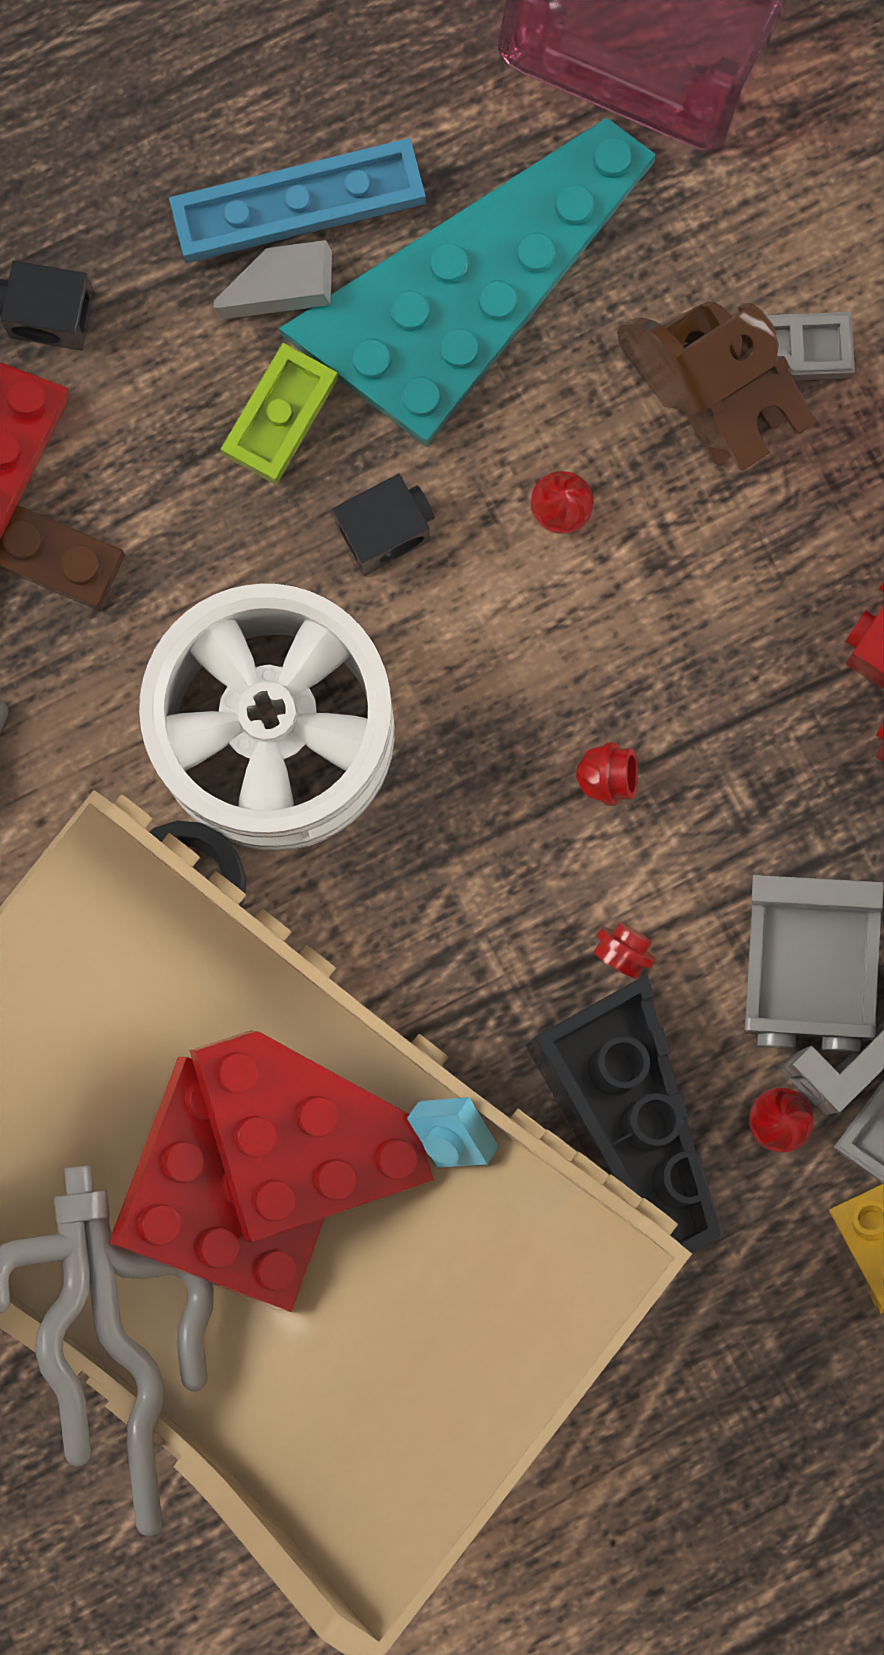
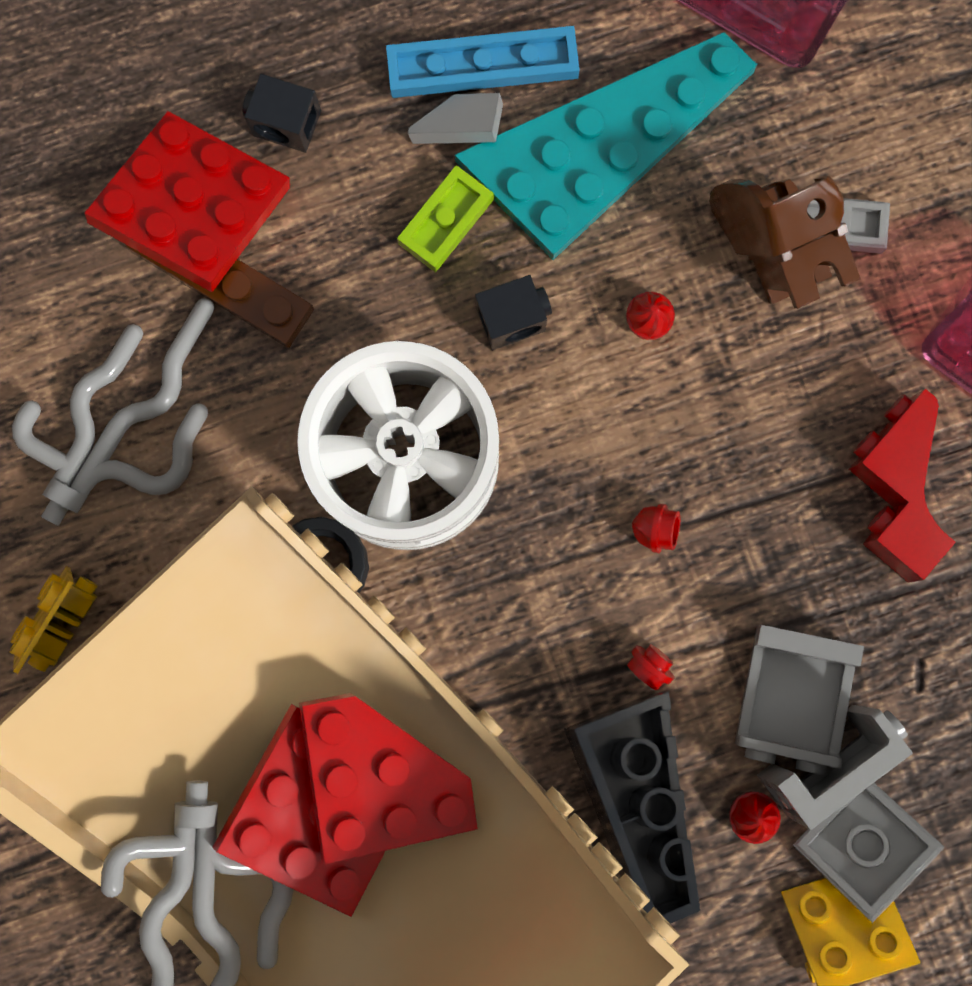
camera: 10 degrees right, 0 degrees up
(453, 1132) = (498, 796): medium azure plate -> none

